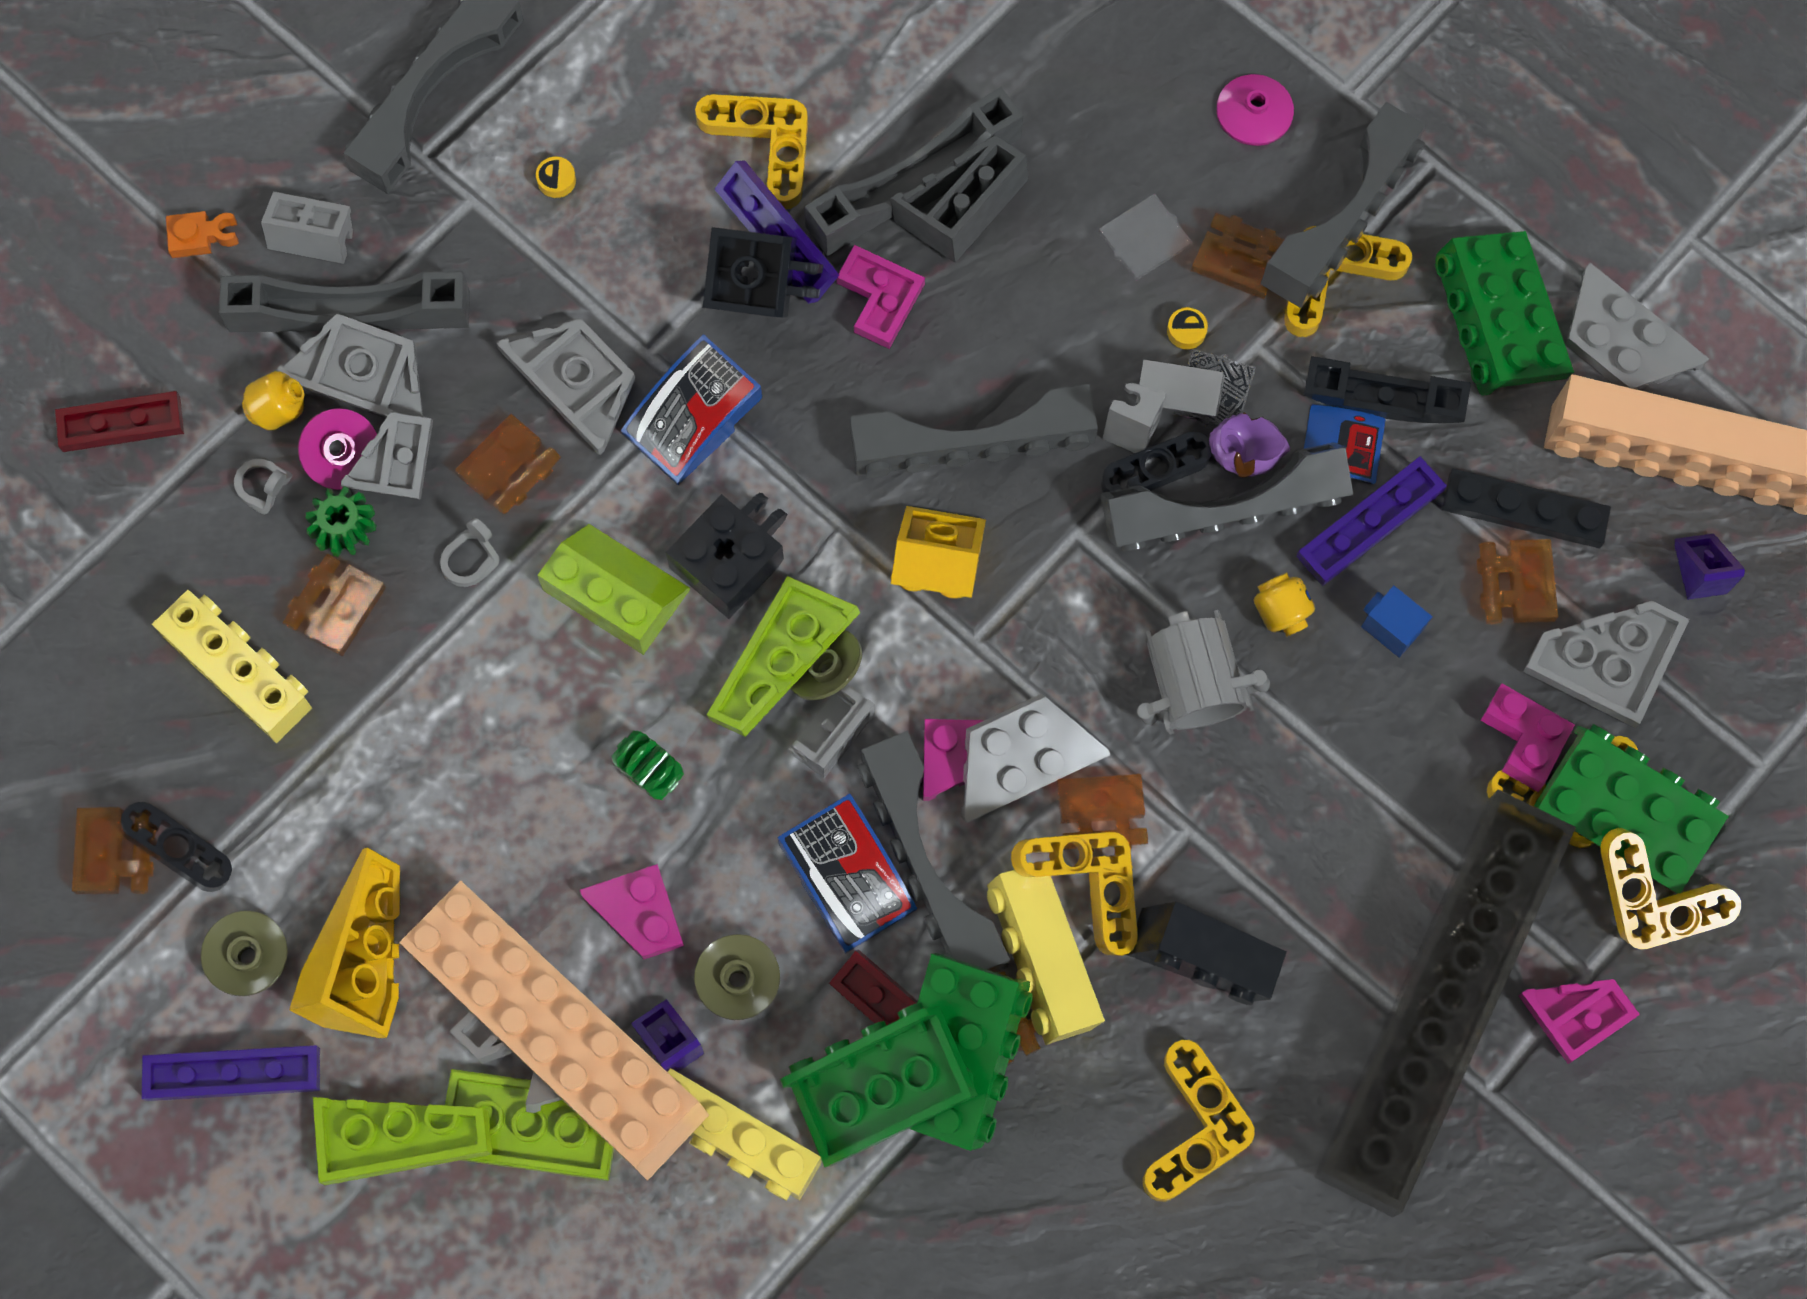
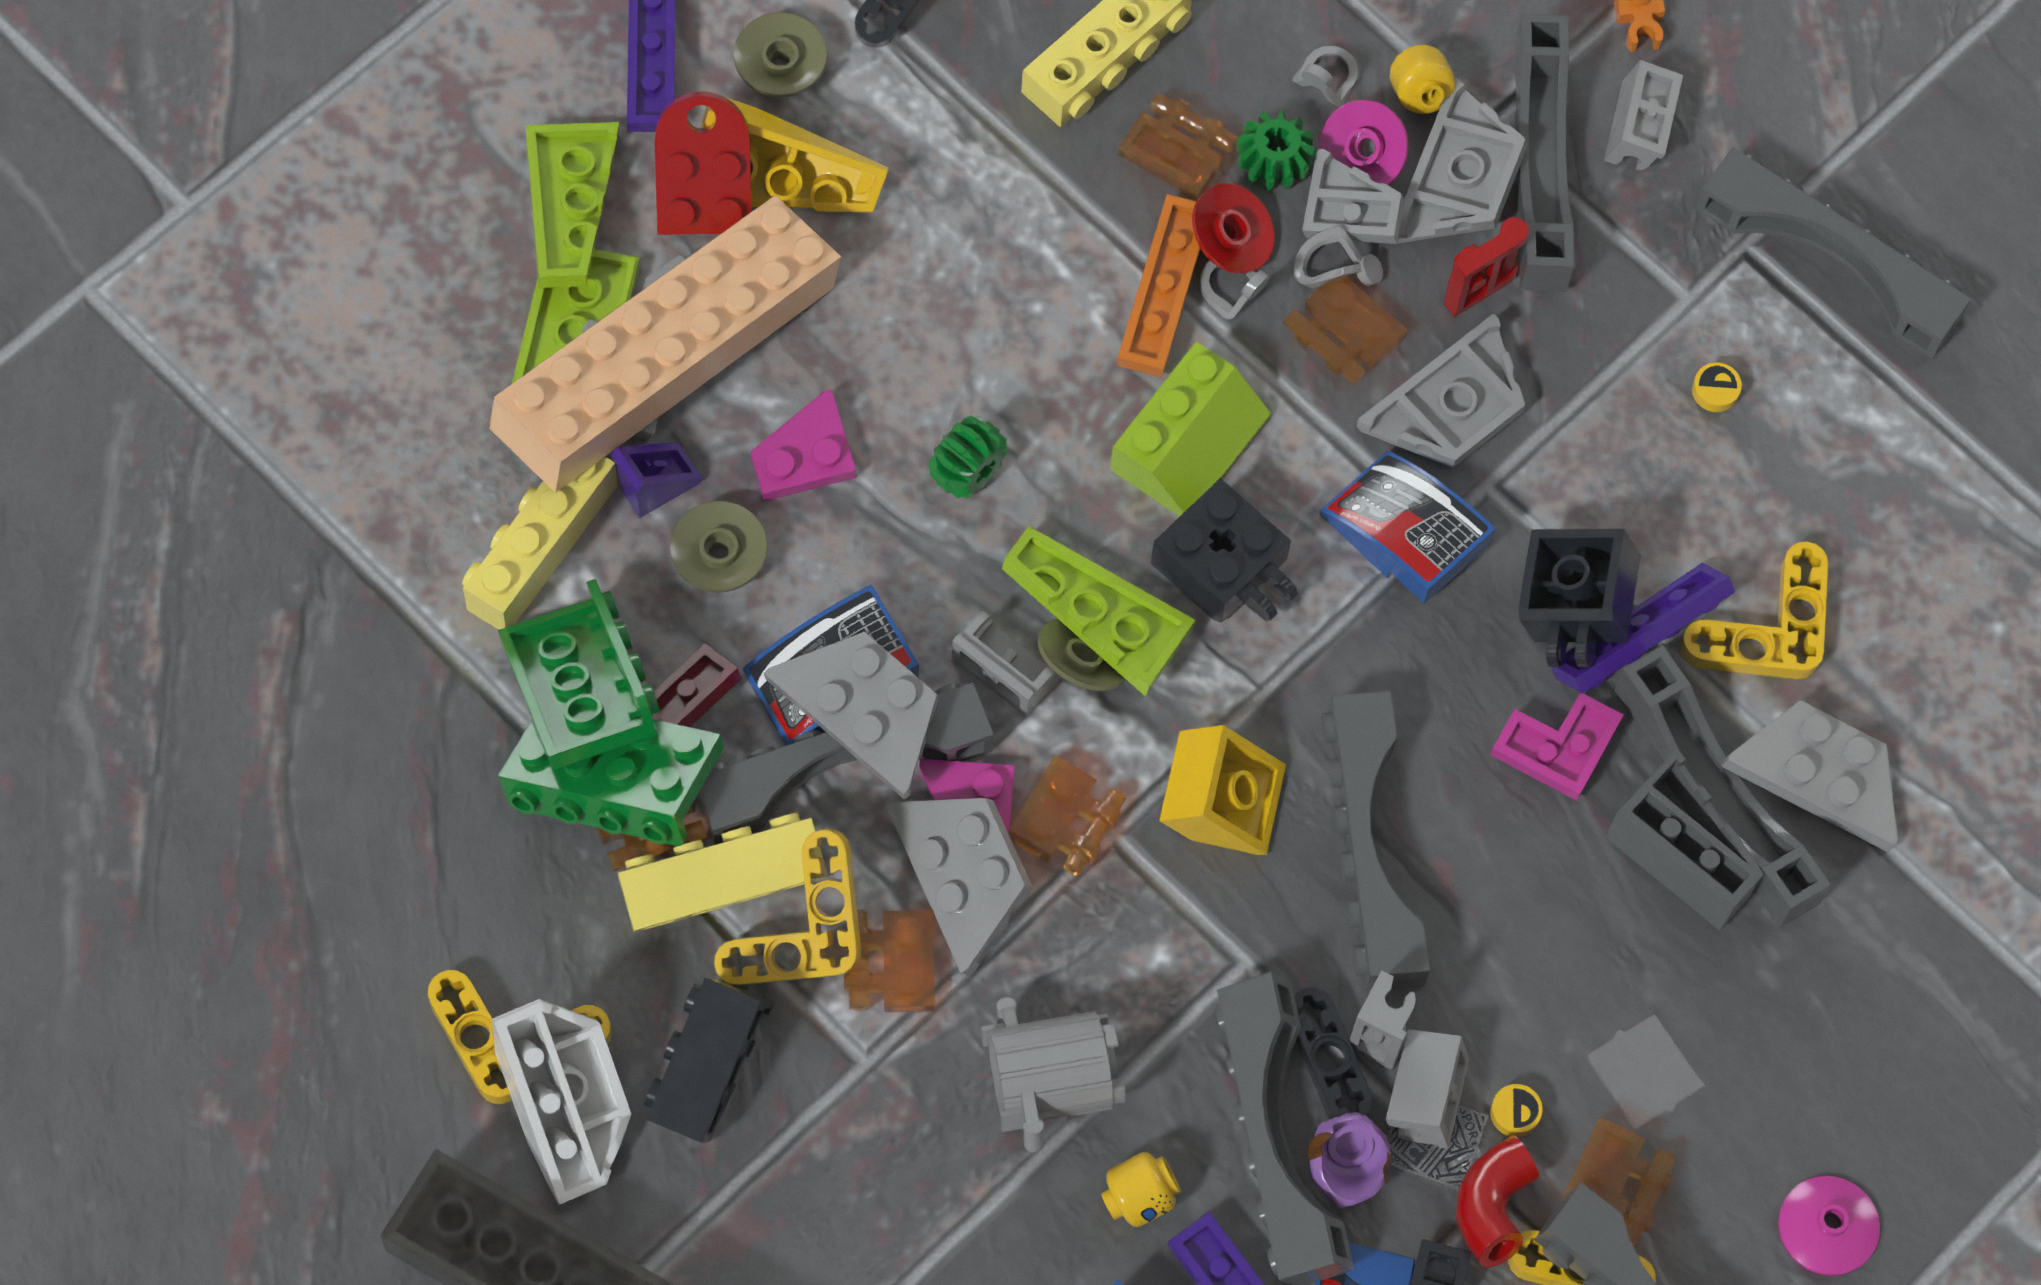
camera: 90 degrees right, 5 degrees down
(375, 1011) = (701, 171): none -> red plate
(419, 553) = (1246, 223): none -> red dish
(454, 447) = (1366, 267): none -> light grey piece
(456, 340) = (1485, 268): none -> red plate
(472, 611) = (1161, 290): none -> orange plate
(891, 100) = (1823, 770): none -> light grey wing
(891, 836) = (863, 703): none -> light grey wing
(962, 686) = (1052, 808): none -> clear orange plate
(1262, 1067) = (563, 1094): none -> white wedge
(1266, 347) = (1484, 1199): none -> red cylinder

